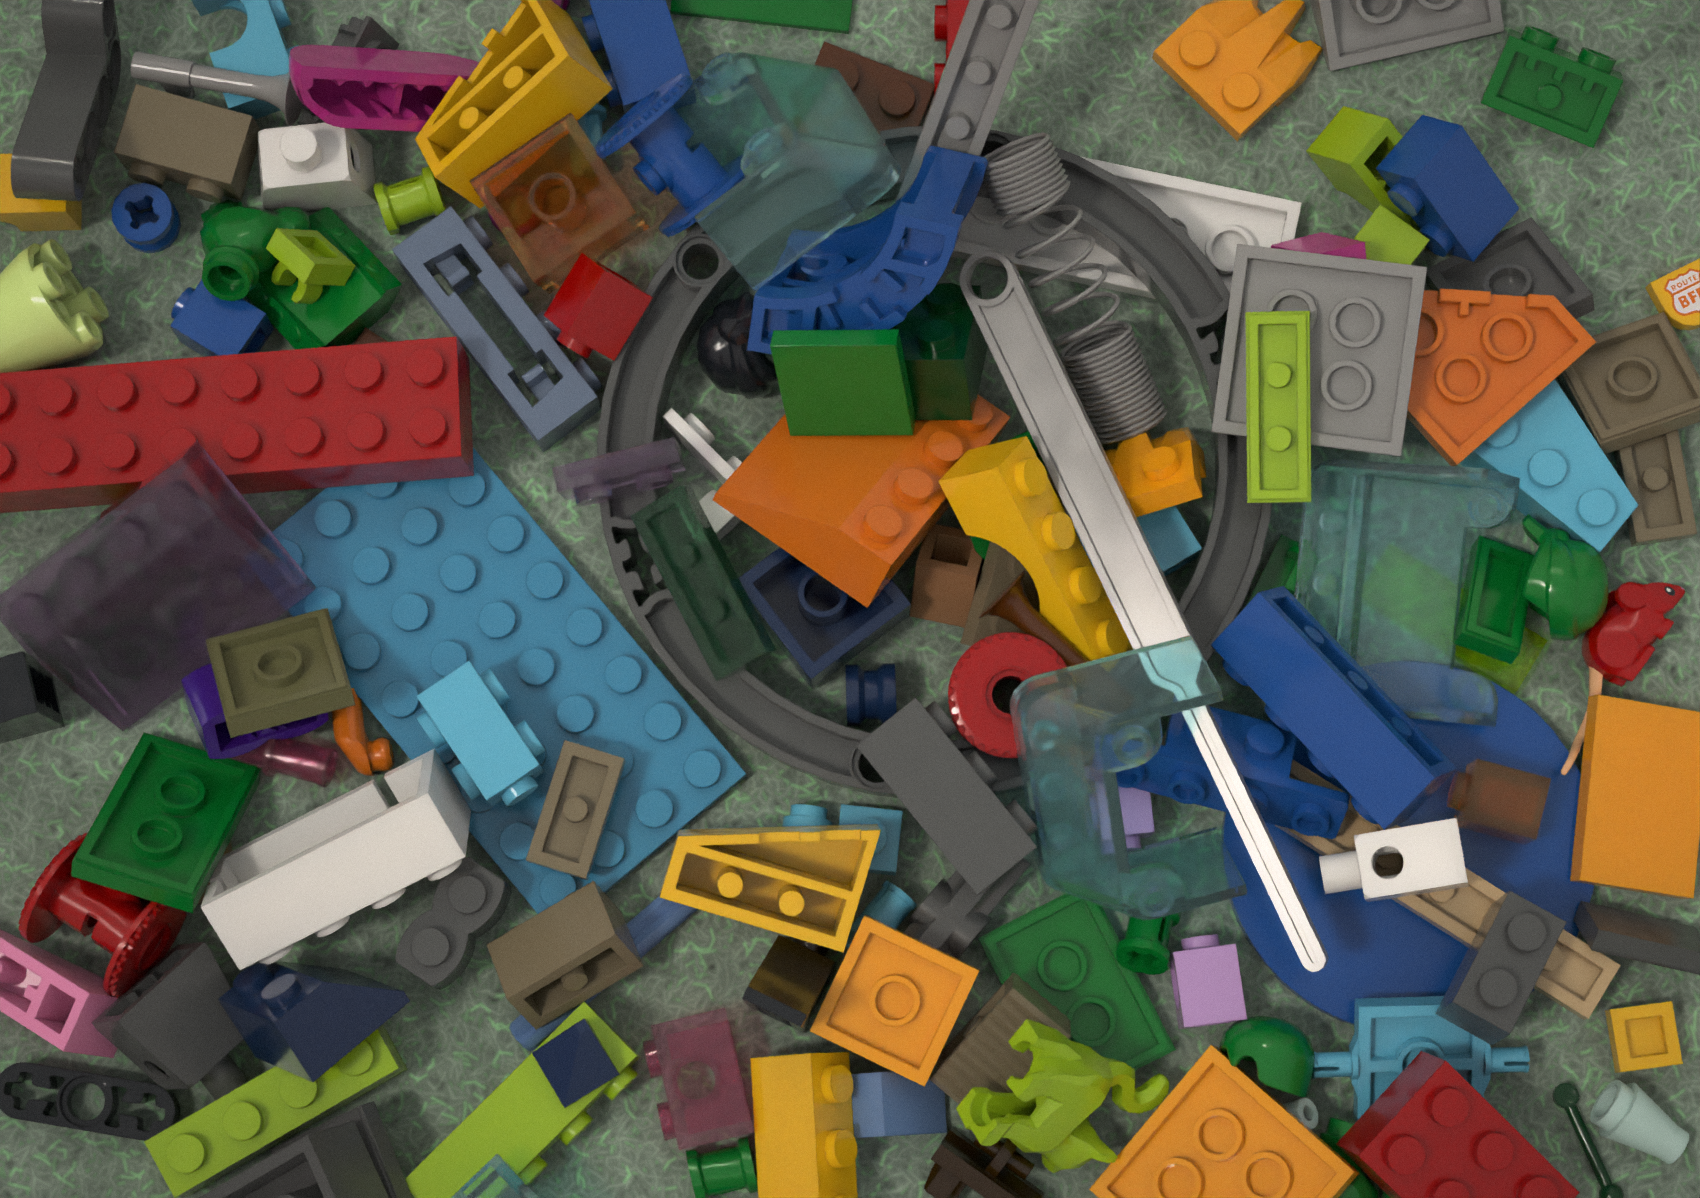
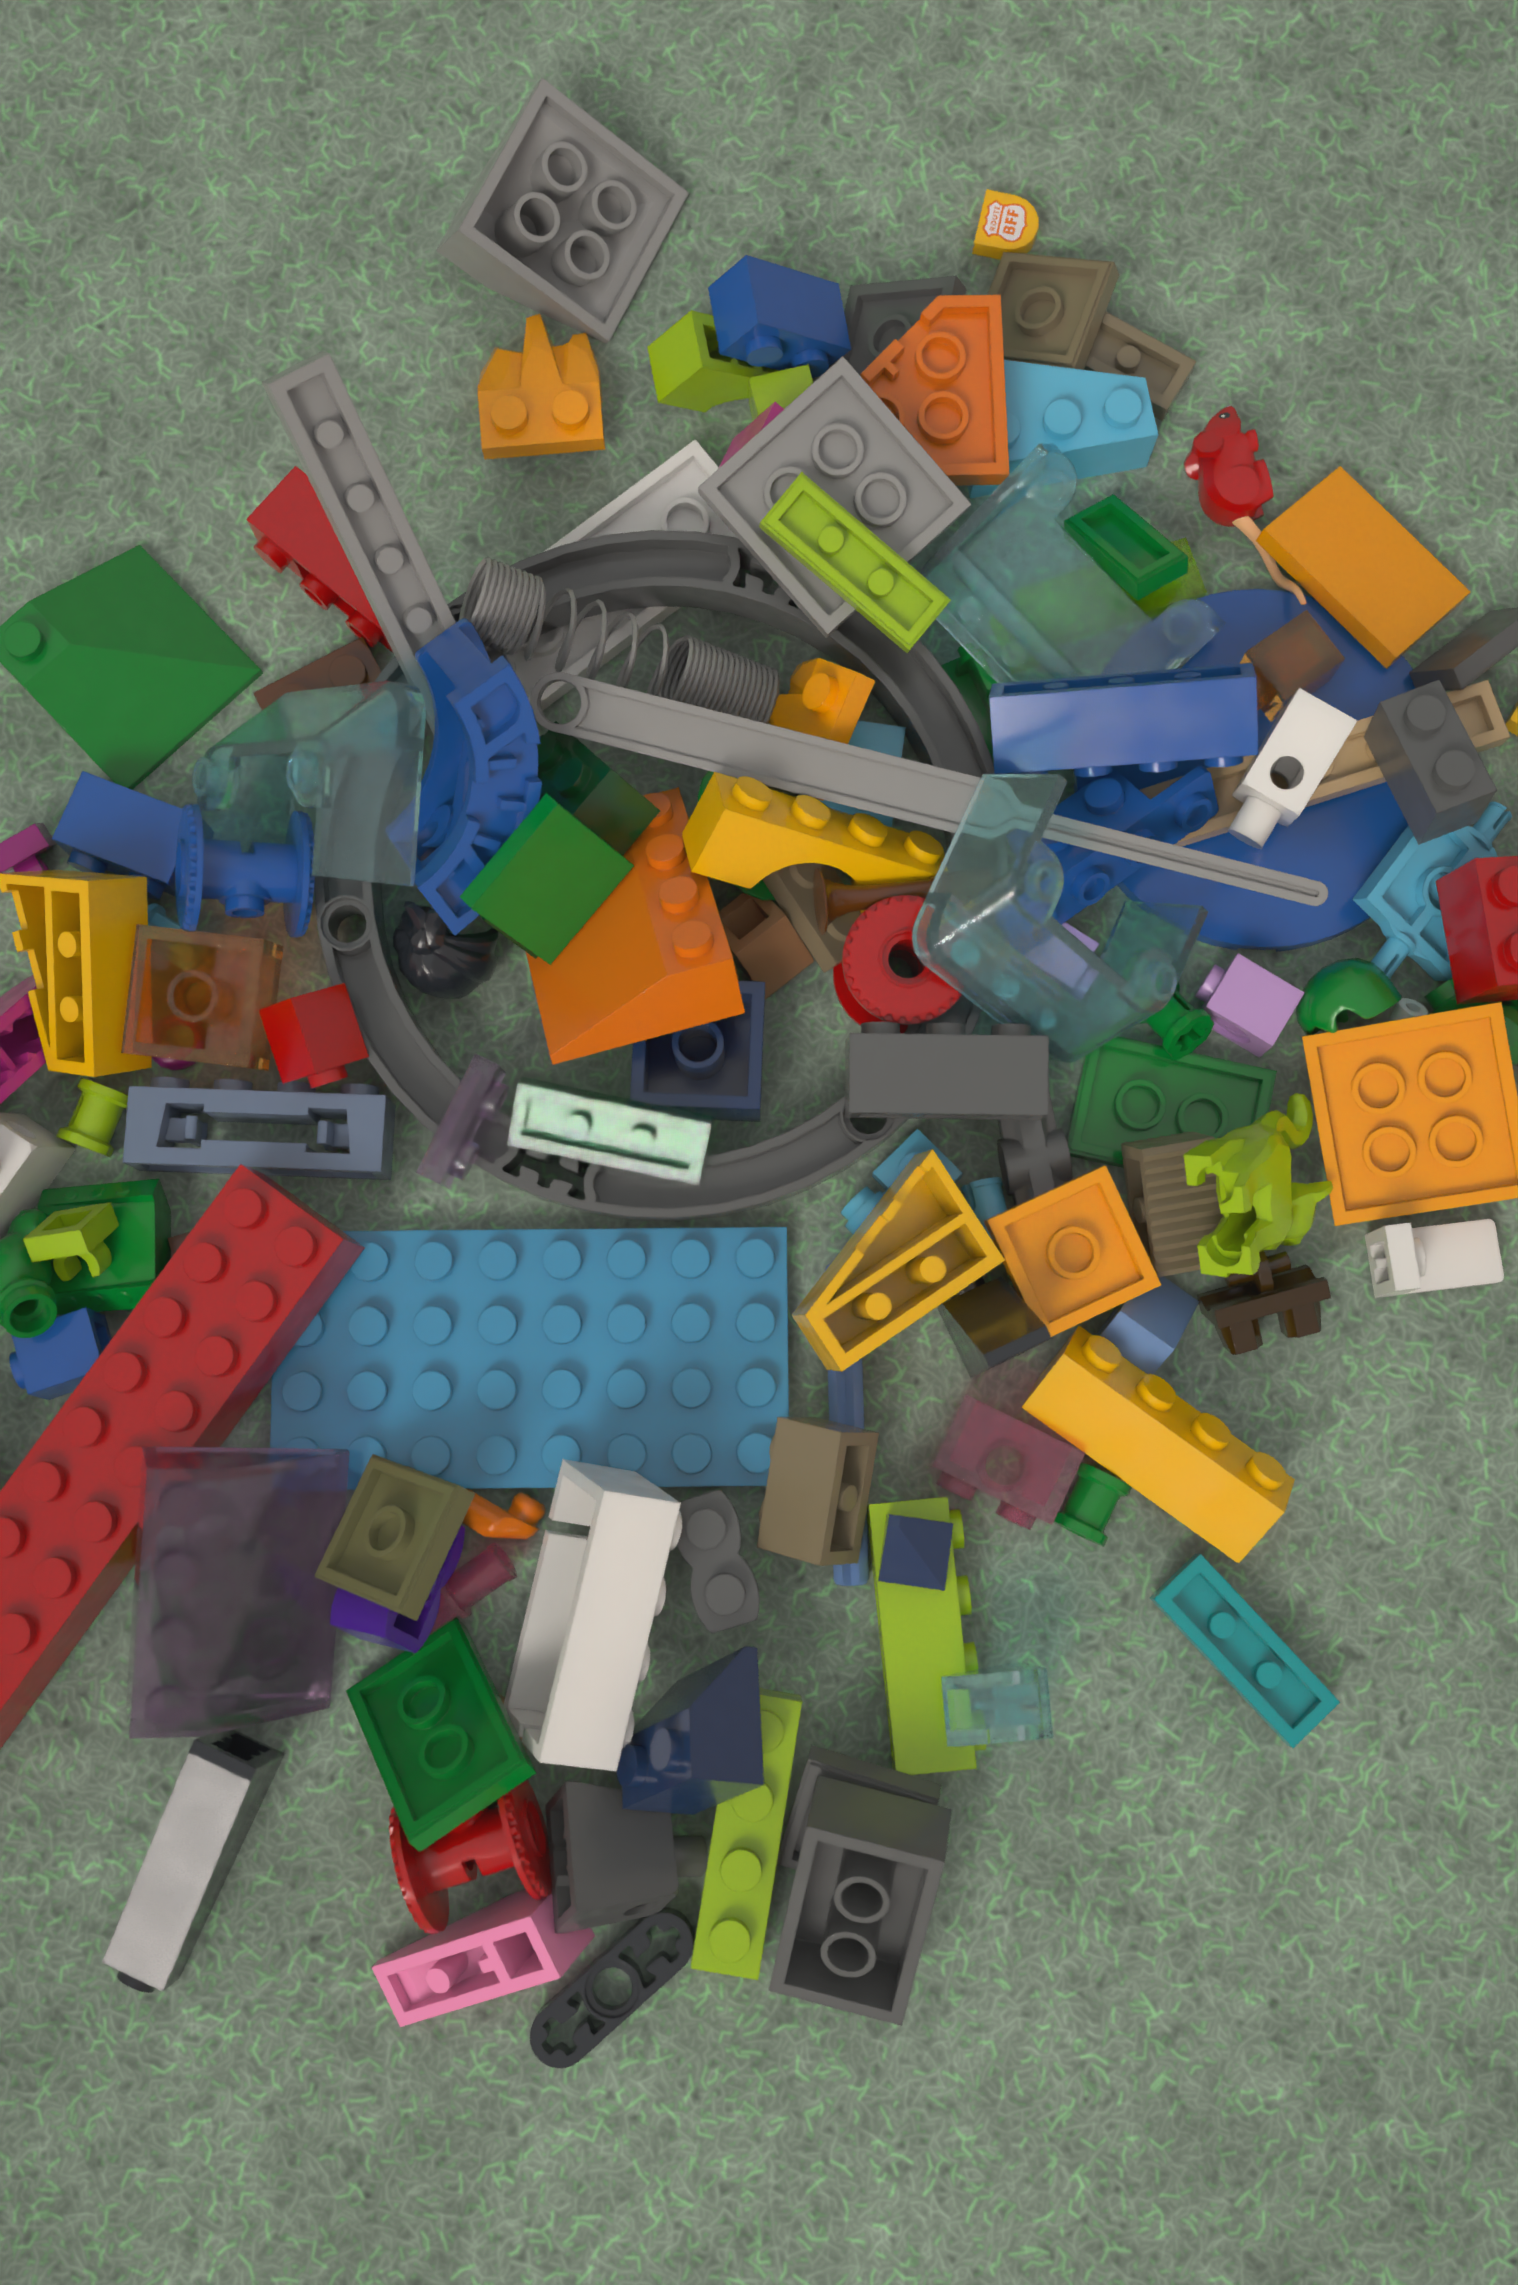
camera: 50 degrees left, 0 degrees up
(492, 751) = (604, 1412): medium azure brick -> none
(576, 810) = (707, 1384): dark tan plate -> none
(697, 441) = (517, 1049): white bracket -> none
(870, 693) = (805, 1077): dark blue wheel -> none
(1553, 86) = (763, 188): green bracket -> none
(1565, 581) = (1156, 481): green hat -> none

